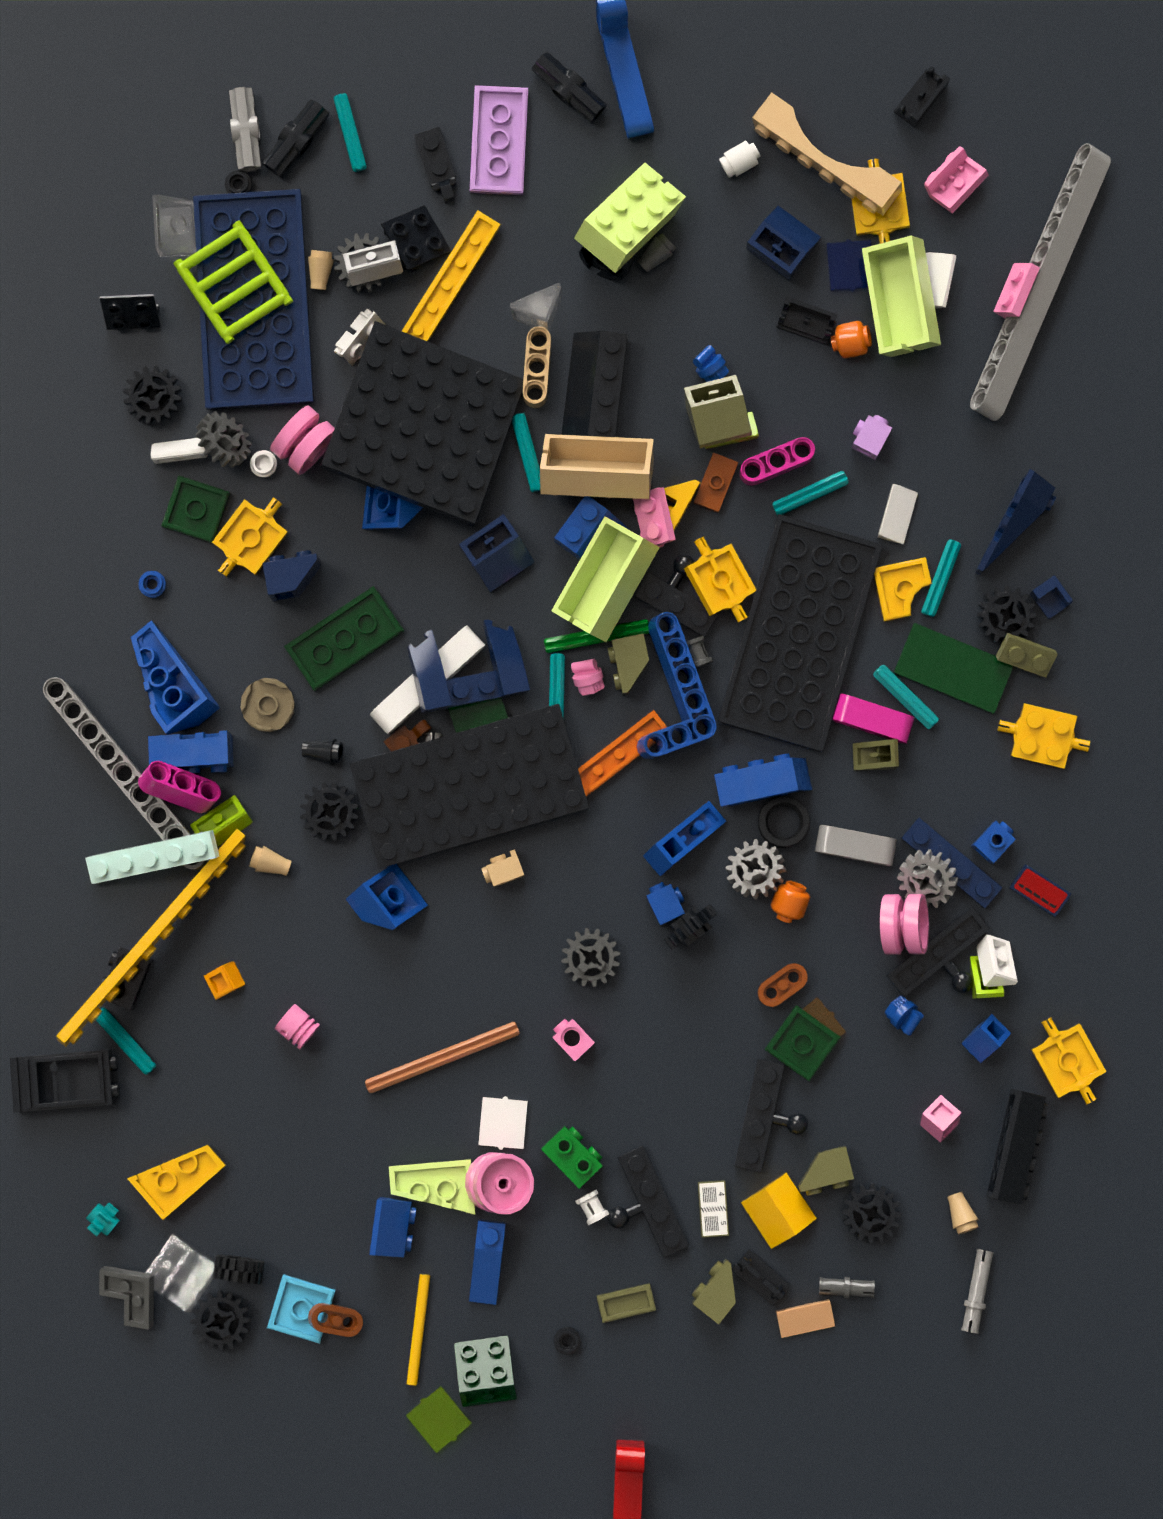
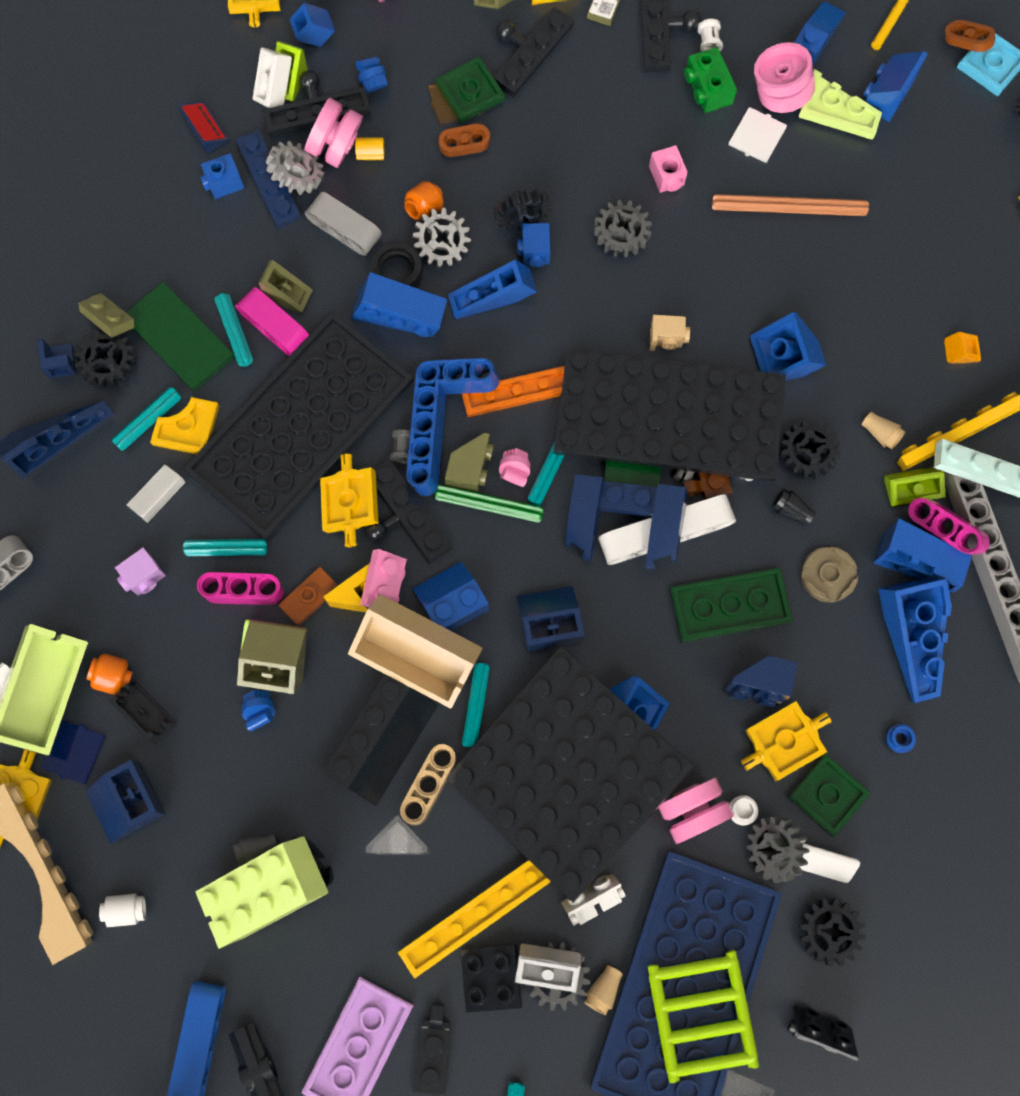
camera: 160 degrees left, 10 degrees down
(297, 1026) = (913, 277): bright pink piece -> none
(605, 579) = (457, 541): yellowish green piece -> none
(867, 935) = (370, 148): none -> yellow piece
(1043, 735) = (130, 246): yellow plate -> none

